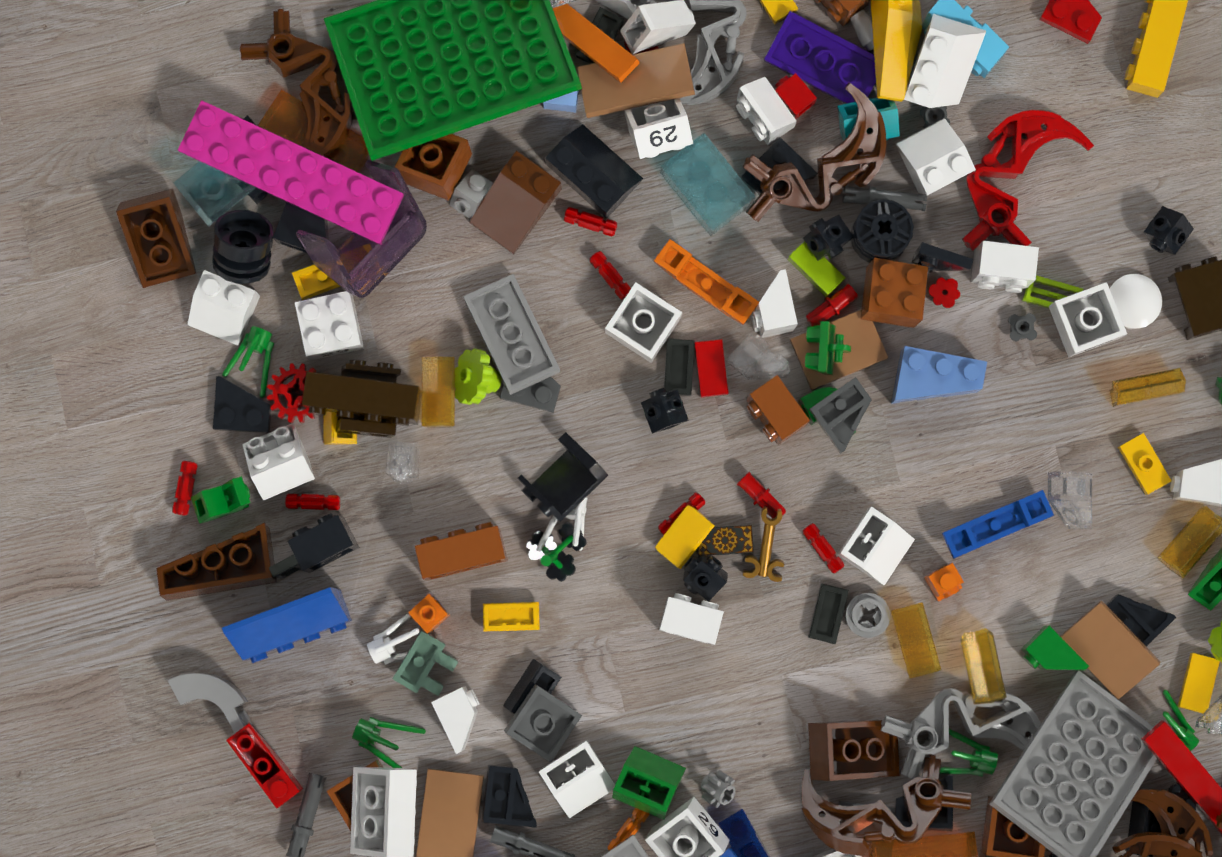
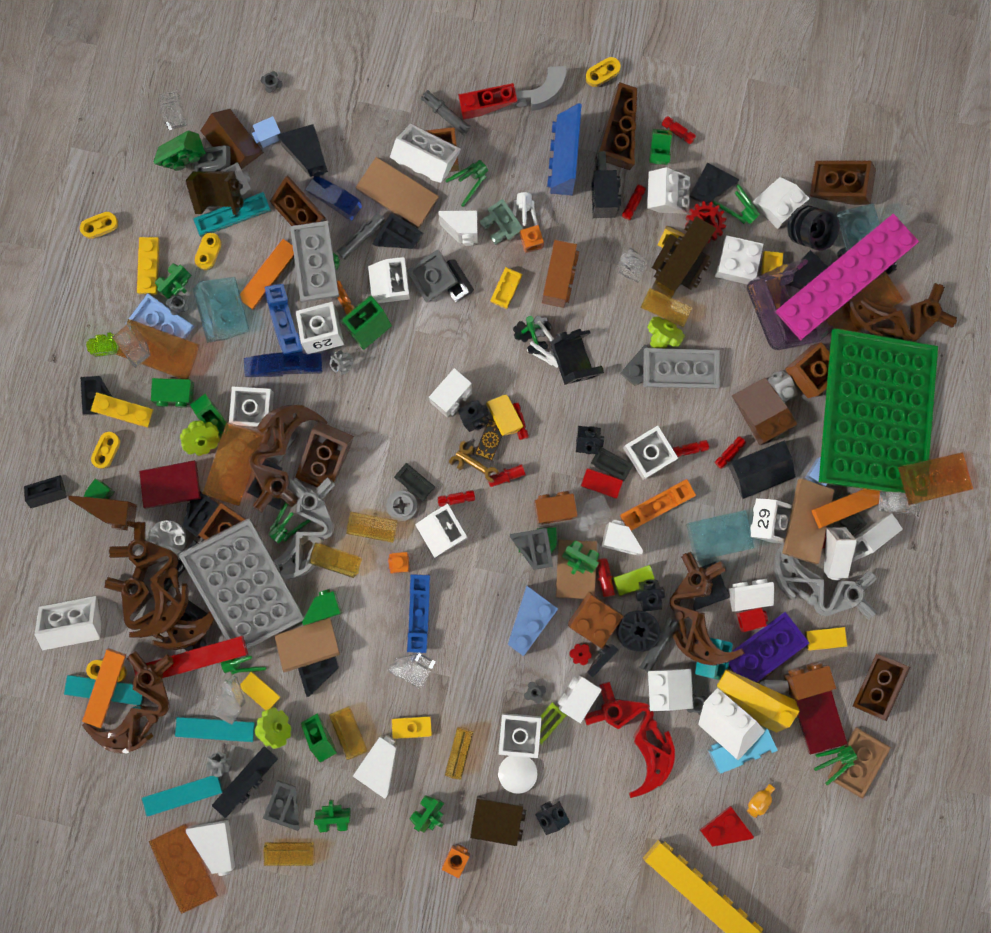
camera: 115 degrees right, 0 degrees up
(150, 628) = (601, 71): none -> yellow plate

